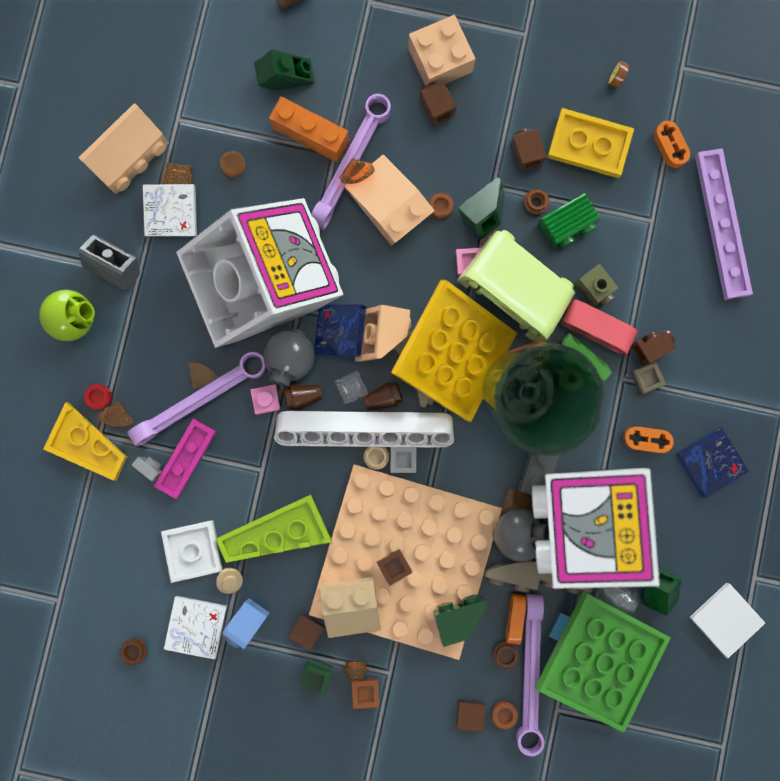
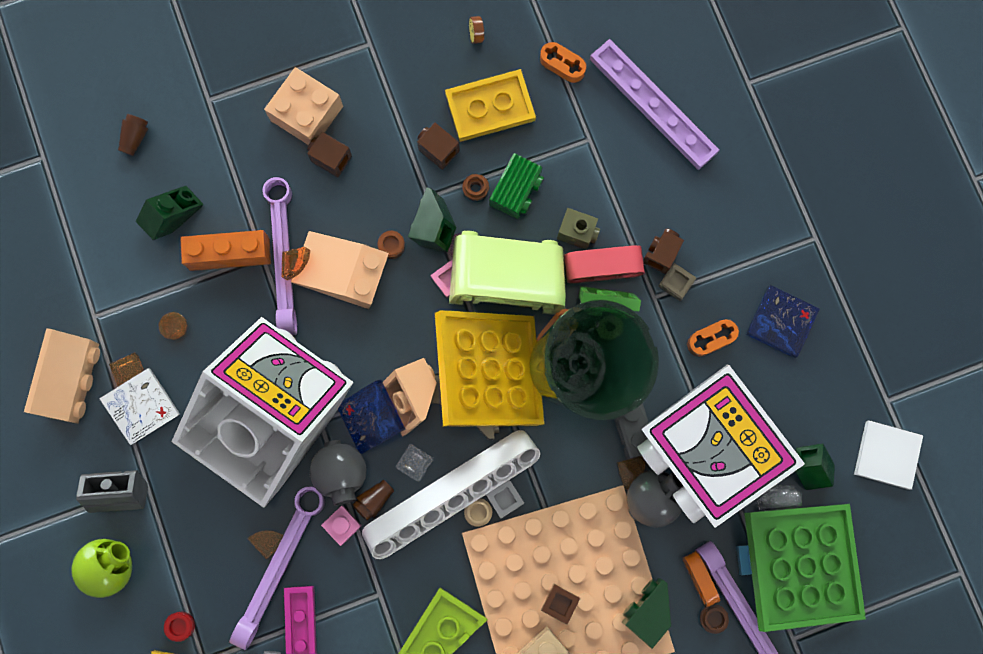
camera: 30 degrees left, 5 degrees down
(116, 416) = (208, 633): clear orange tile -> none
(385, 396) = (450, 452): reddish brown cone -> none
(523, 576) = (683, 534): dark tan slope -> none

